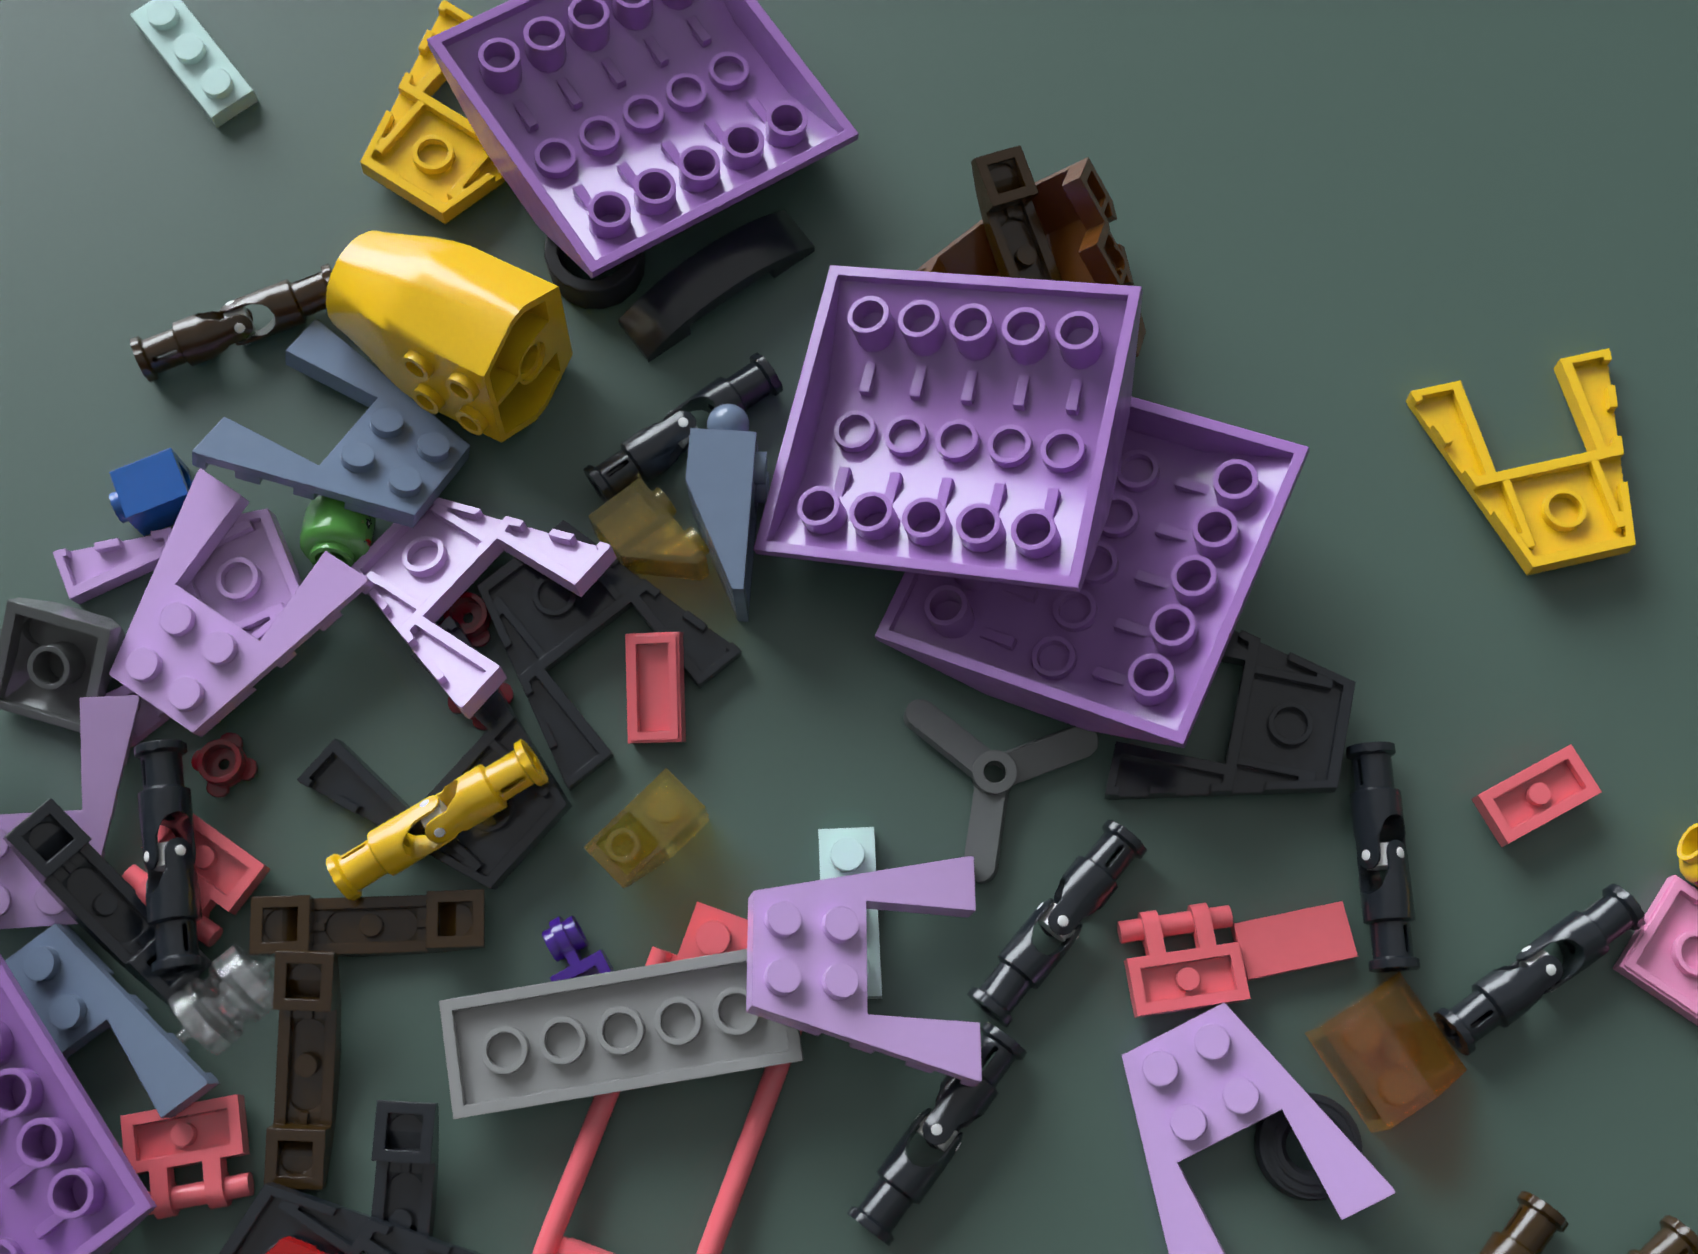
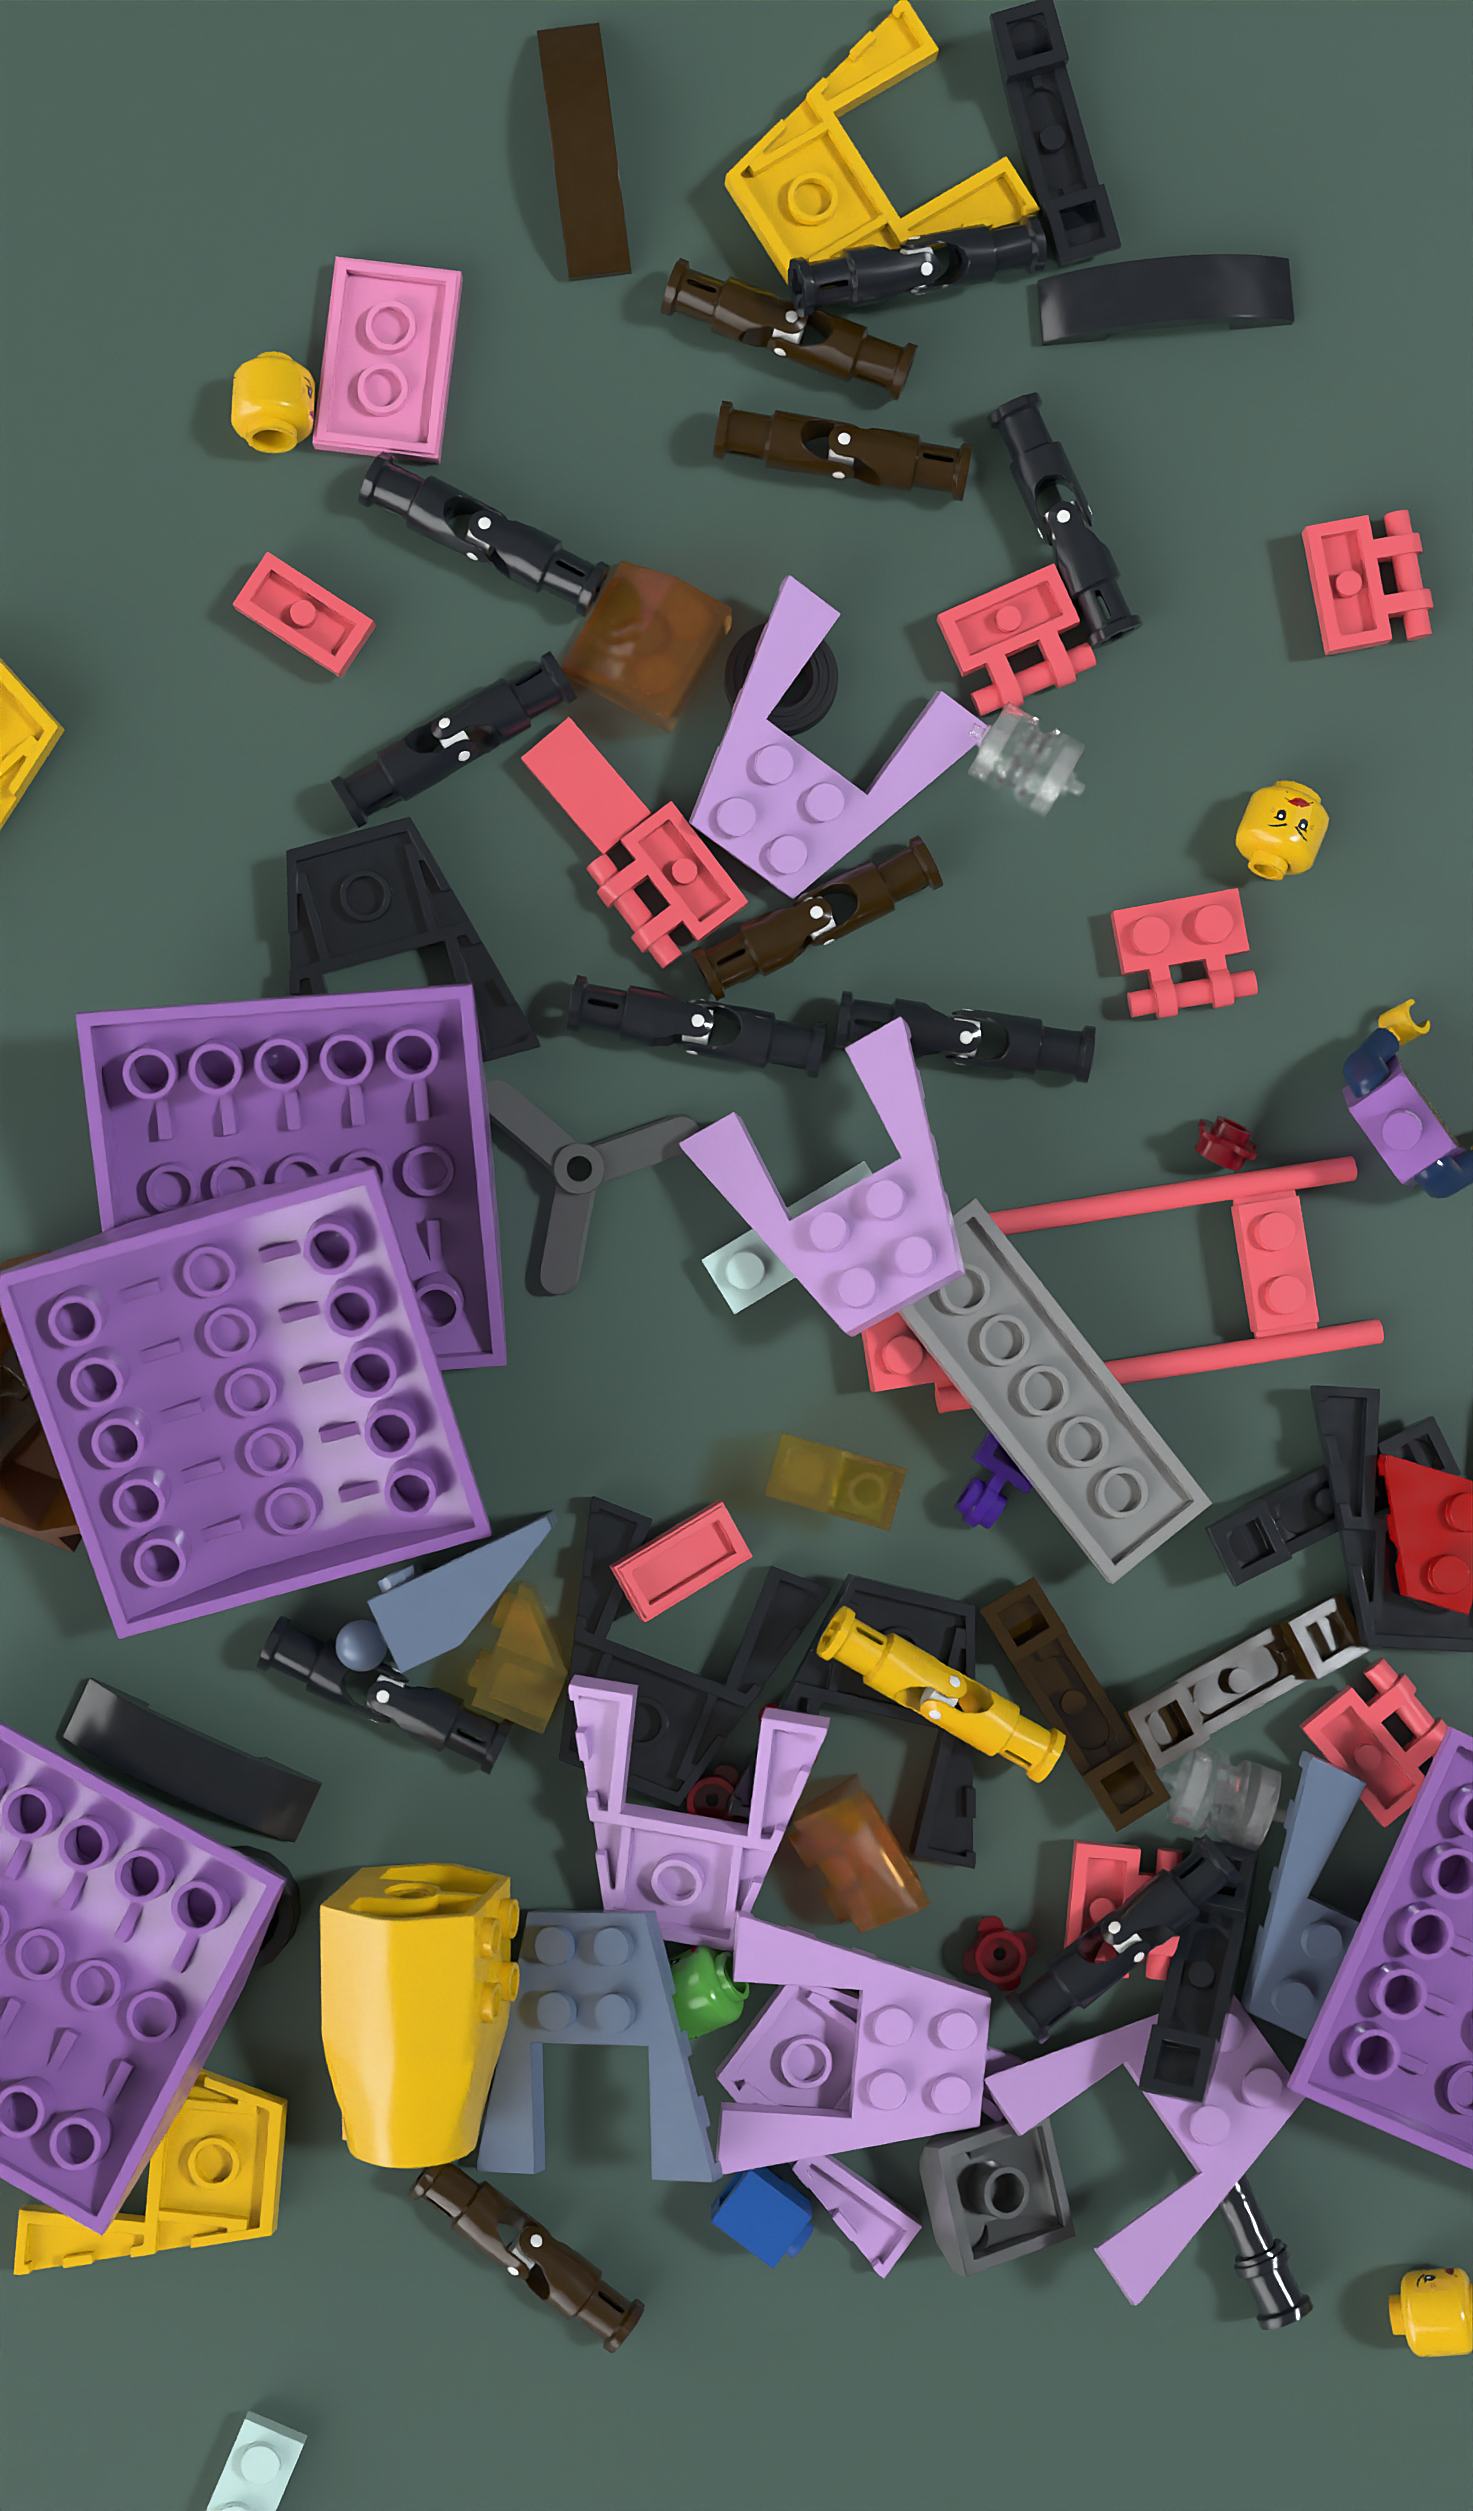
camera: 120 degrees left, 15 degrees up
(358, 697) = (859, 1857): none -> clear orange slope
(1096, 1030) = (784, 934): none -> dark brown piece

